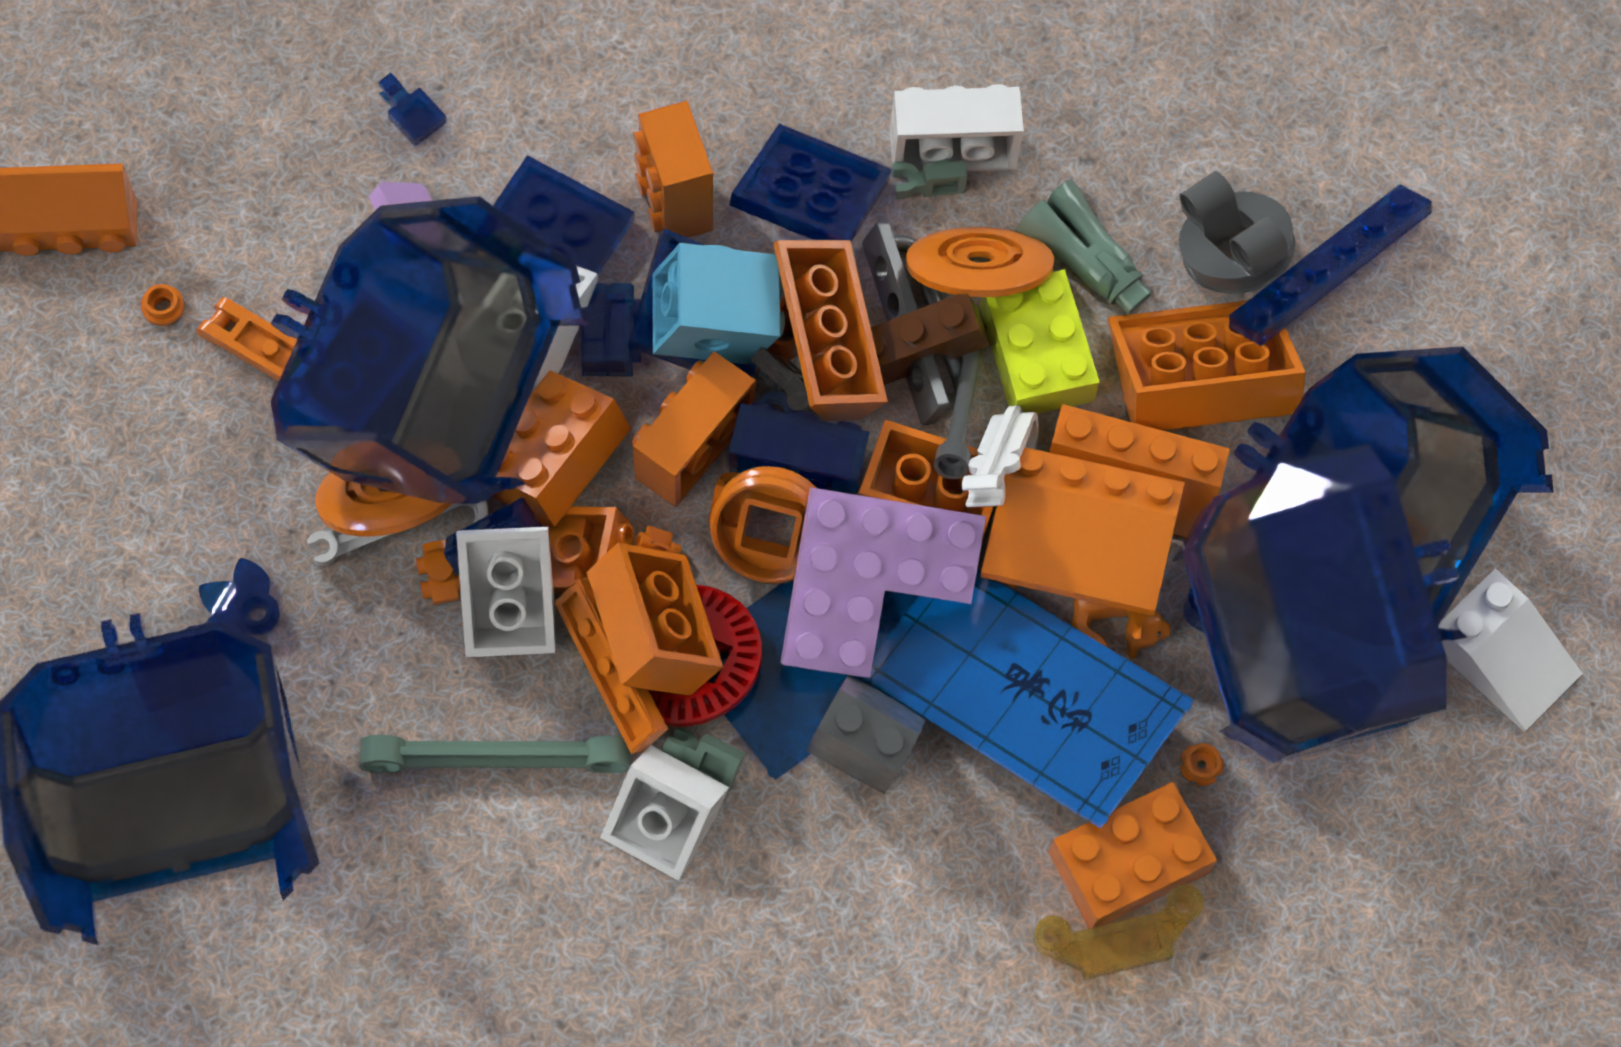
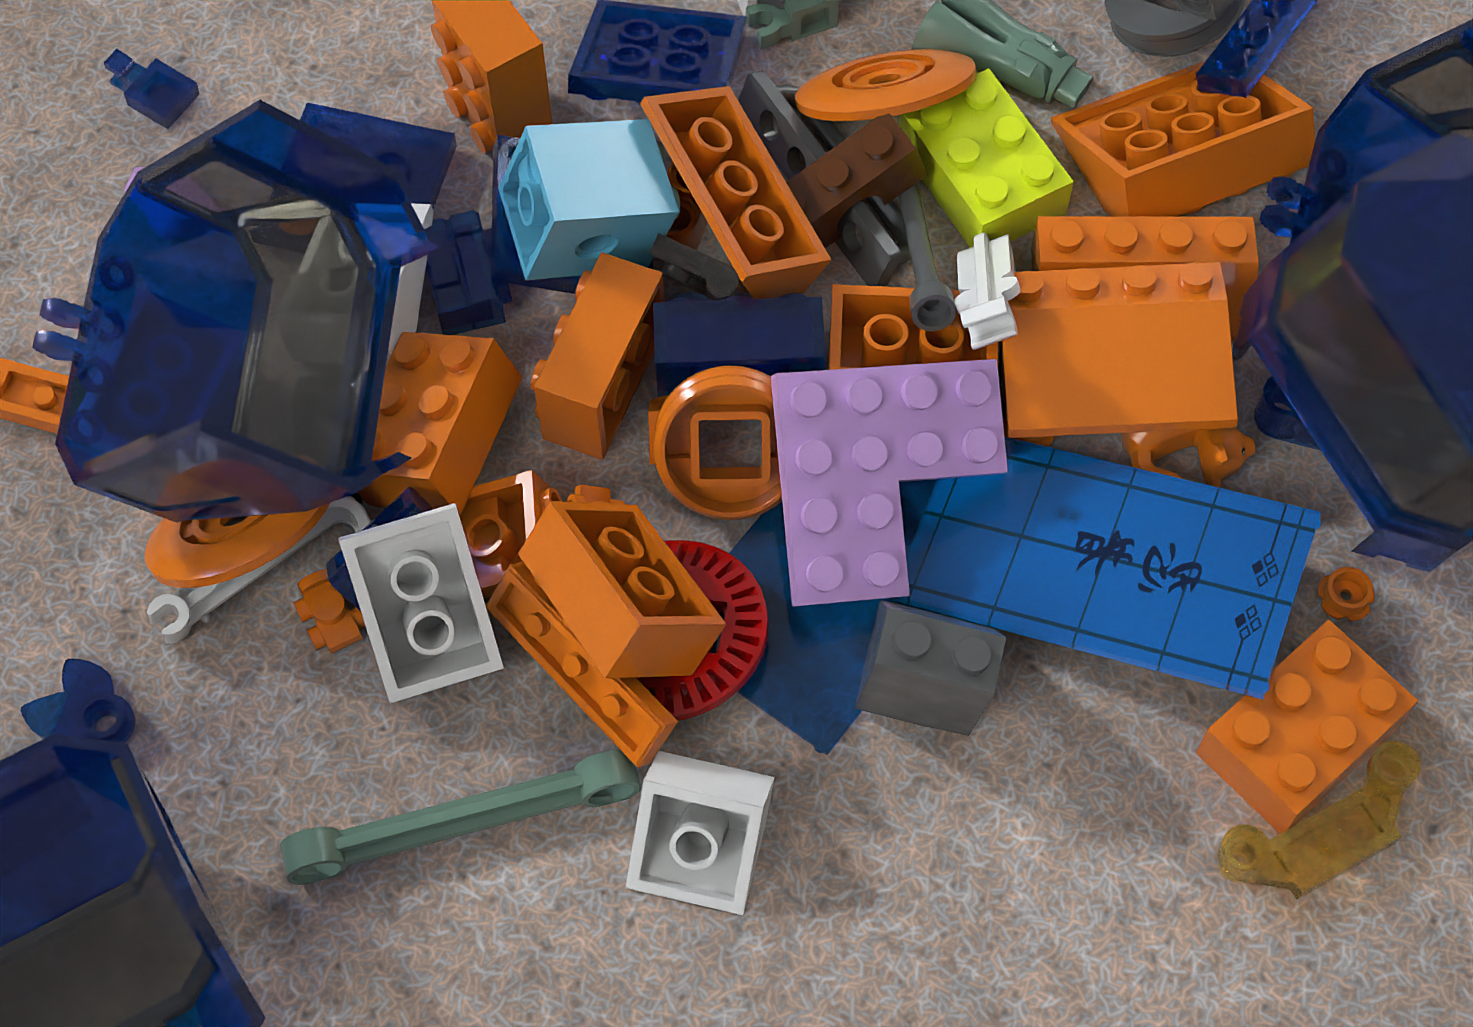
camera: 10 degrees left, 5 degrees down
(708, 756) = (737, 745): sand green plate -> none

